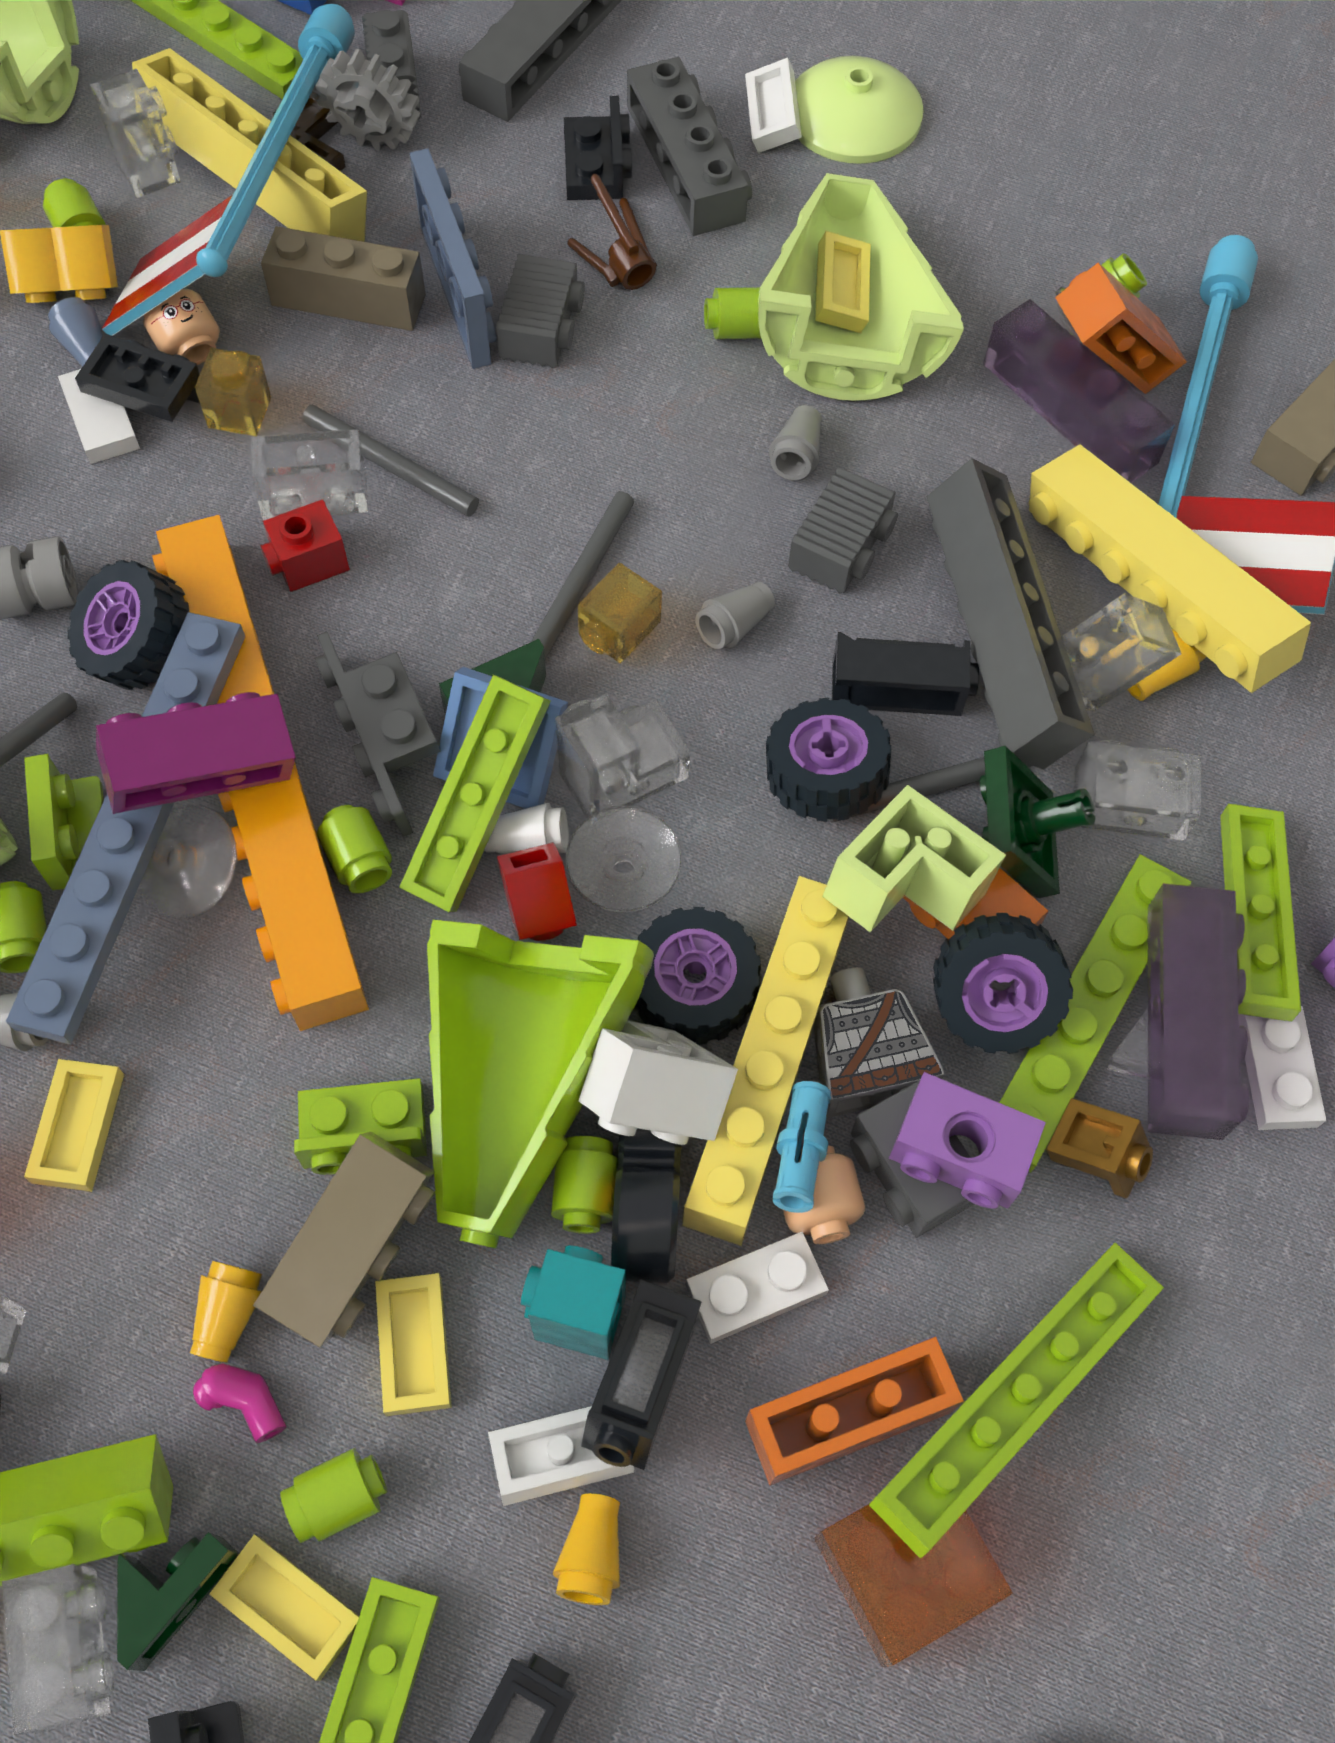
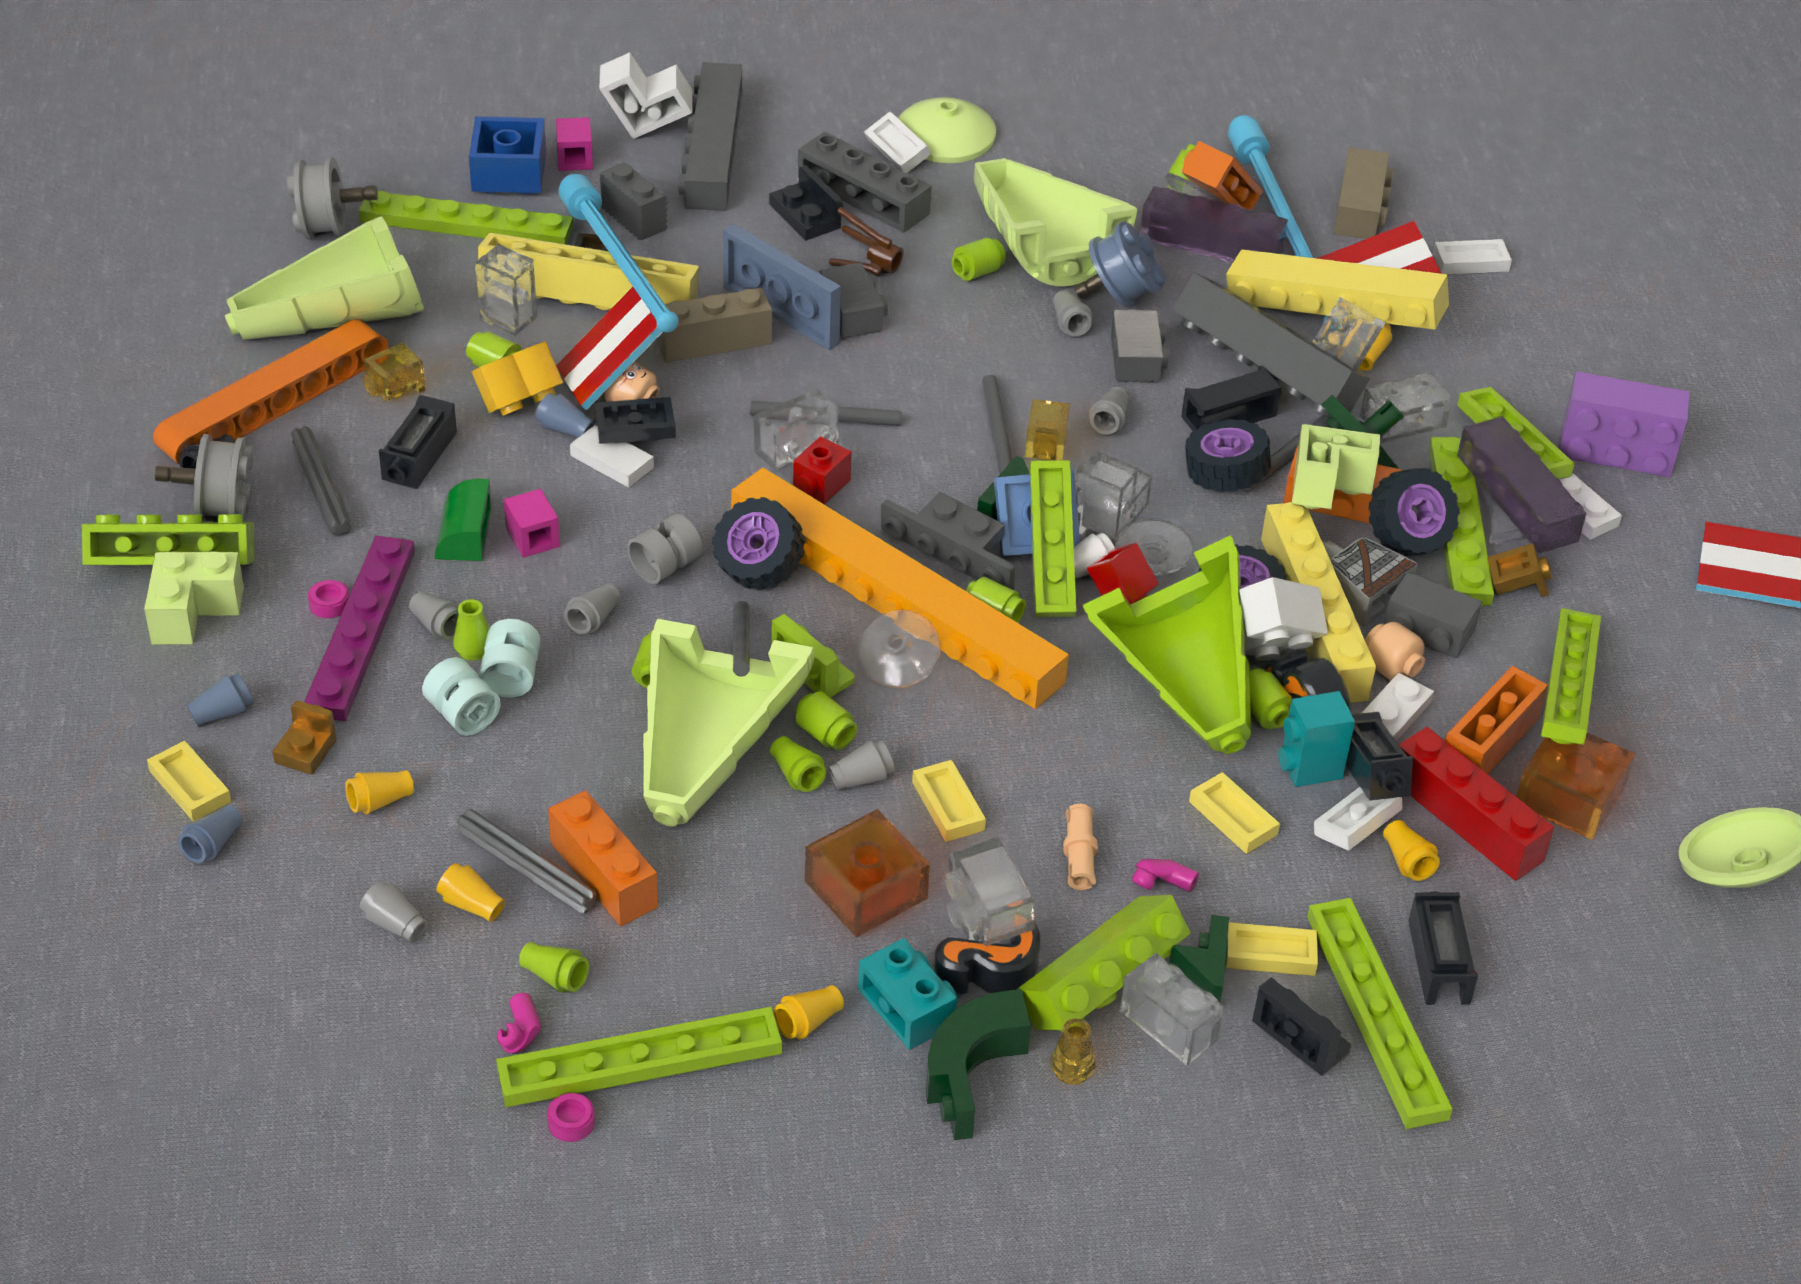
camera: 30 degrees left, 20 degrees down
(116, 853) = (863, 633): sand blue plate -> none
(165, 1296) = (1080, 847): none -> light nougat pin
(194, 751) = (884, 568): magenta brick -> none
(223, 1309) = (1118, 835): yellow cone -> none
(233, 391) = (700, 408): clear yellow brick -> none
(333, 1496) = (1256, 886): lime brick -> none
(337, 1116) = (1116, 730): lime bracket -> none
(346, 1240) = (1167, 764): dark tan brick -> none
(368, 100) = (644, 223): light grey gear -> none
(729, 1526) = (1476, 805): none -> red brick
(795, 1178) = (1375, 619): medium azure pin -> none
(843, 282) = (1024, 208): light yellow tile -> none
(900, 405) = (1123, 266): none -> sand blue wheel
(1002, 1135) = (1458, 577): medium lavender brick -> none

